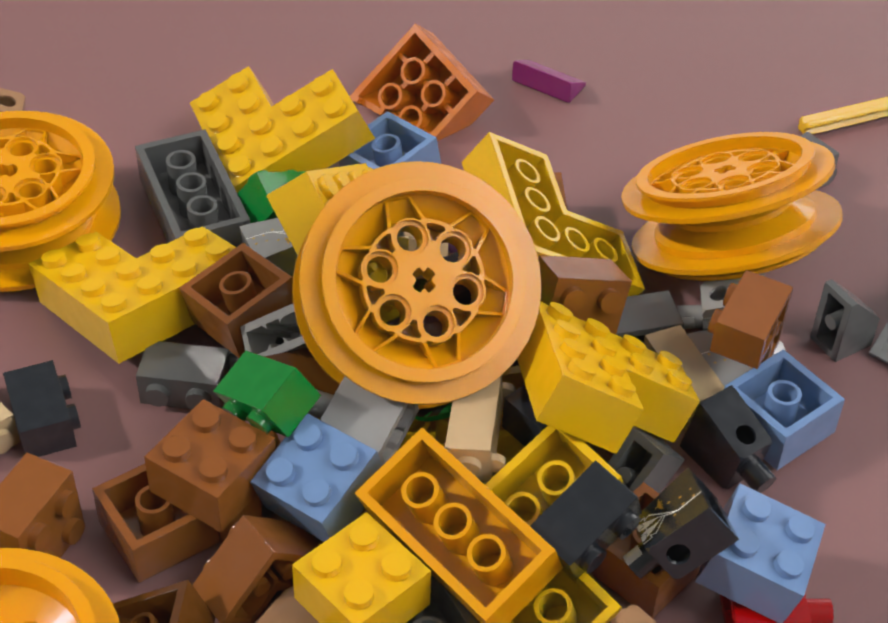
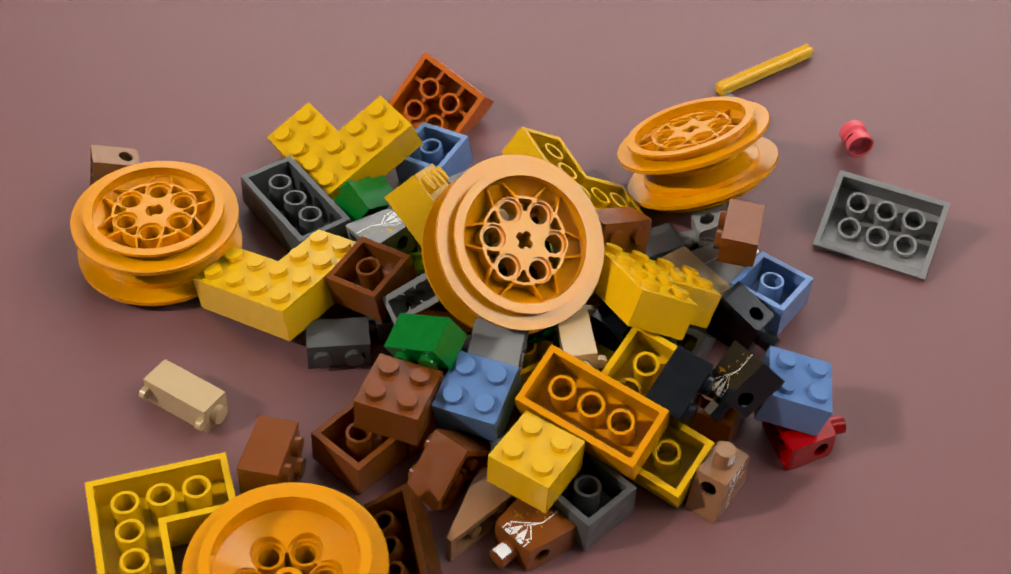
camera: 15 degrees left, 0 degrees up
(41, 410) = (245, 388): black brick -> none
(546, 80) = (524, 81): magenta slope -> none
(842, 322) = (791, 226): dark grey slope -> none

